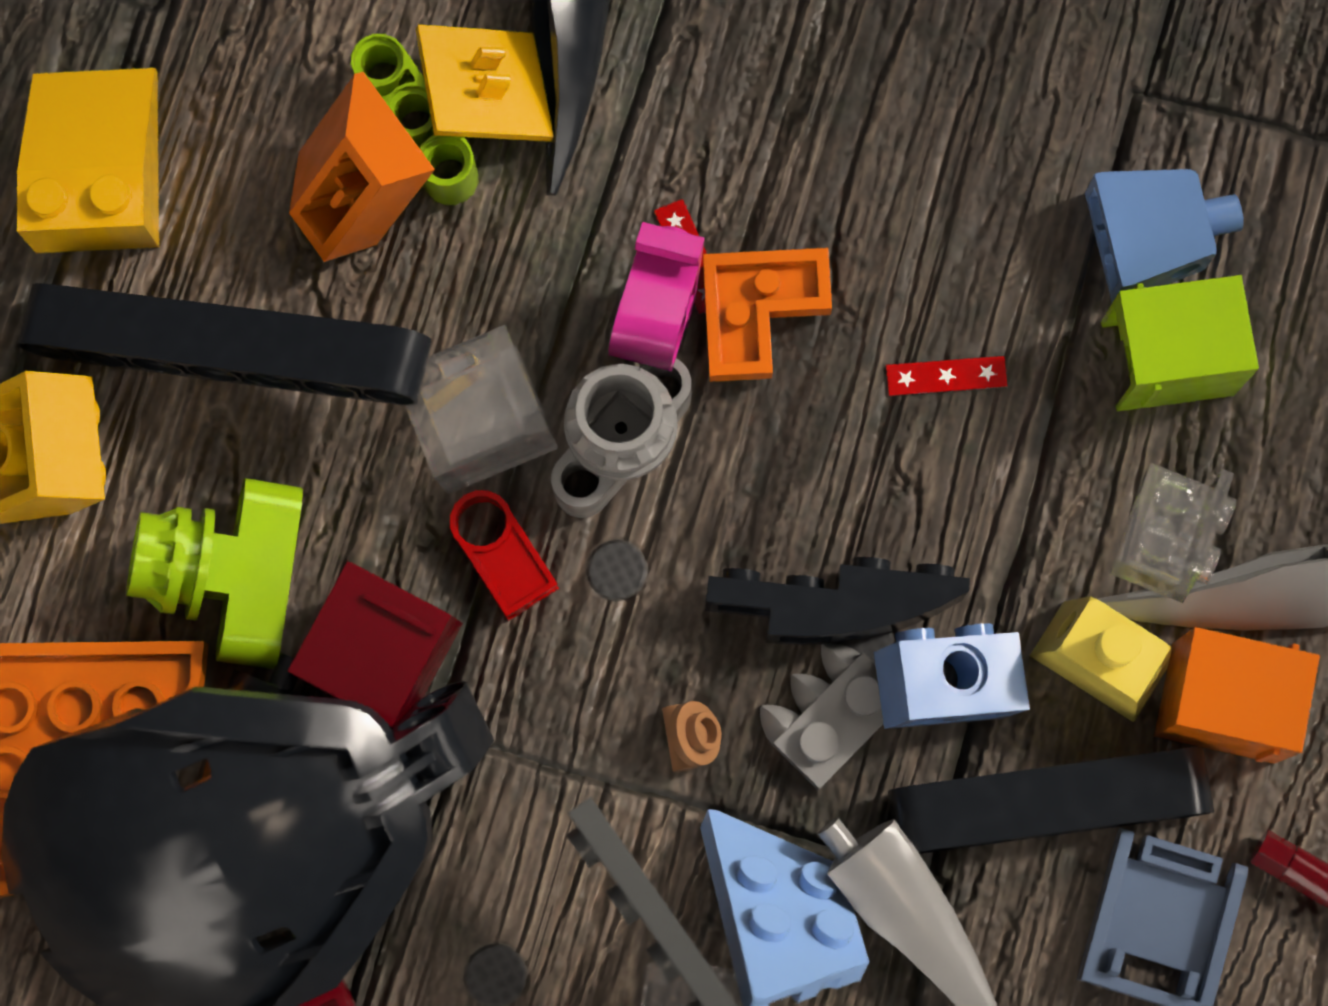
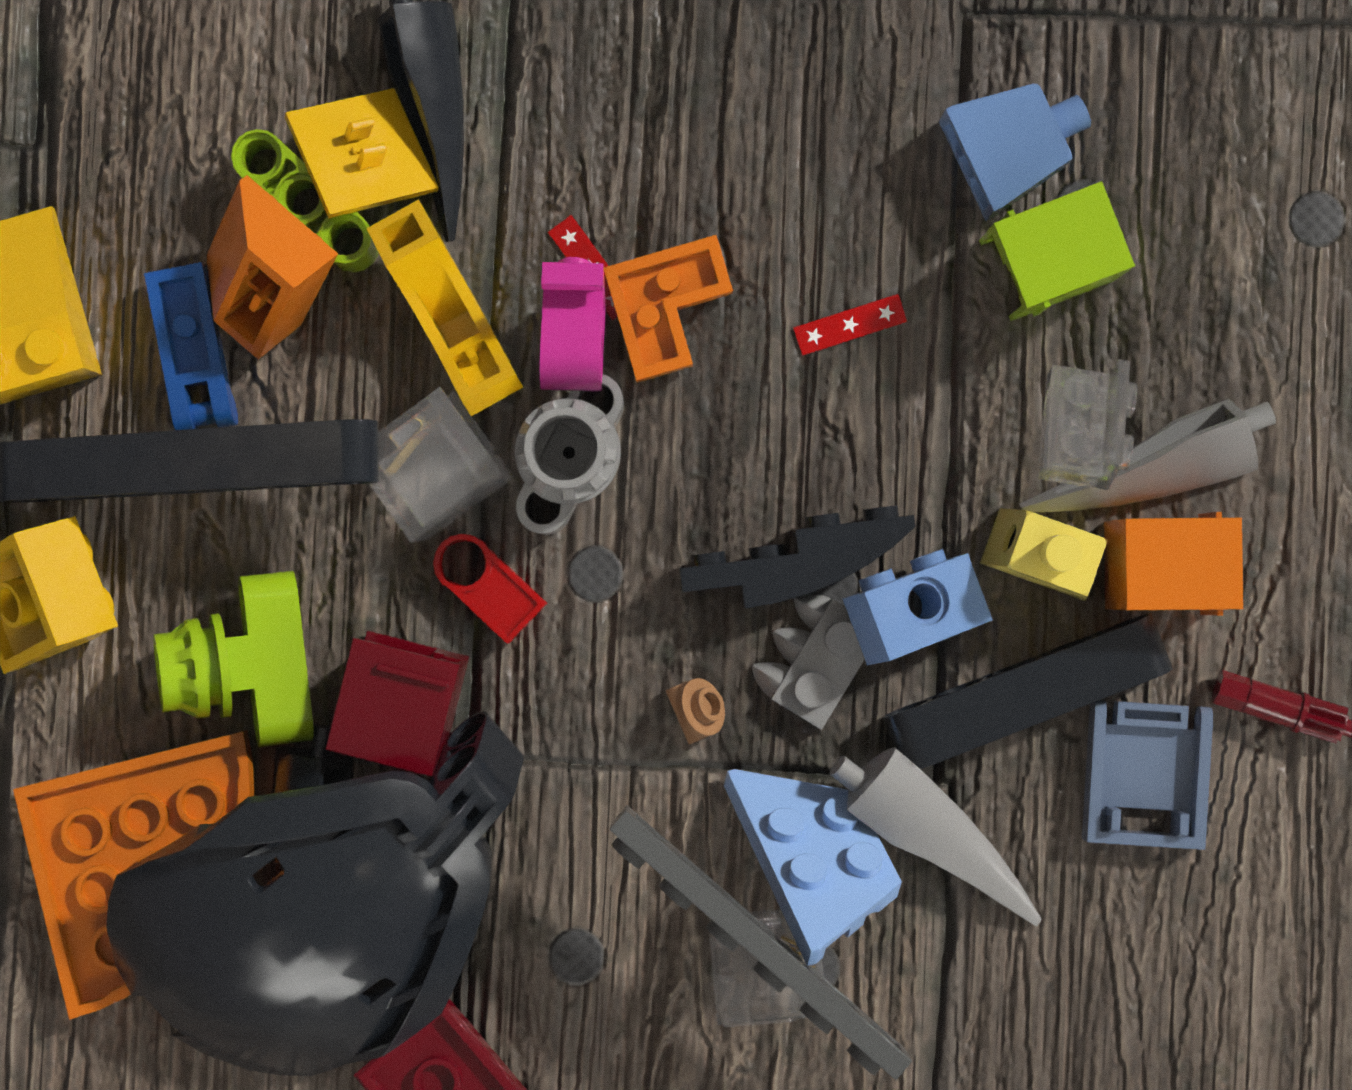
camera: 10 degrees left, 10 degrees up
(258, 229) = (190, 346): none -> blue plate
(530, 252) = (445, 307): none -> yellow arch

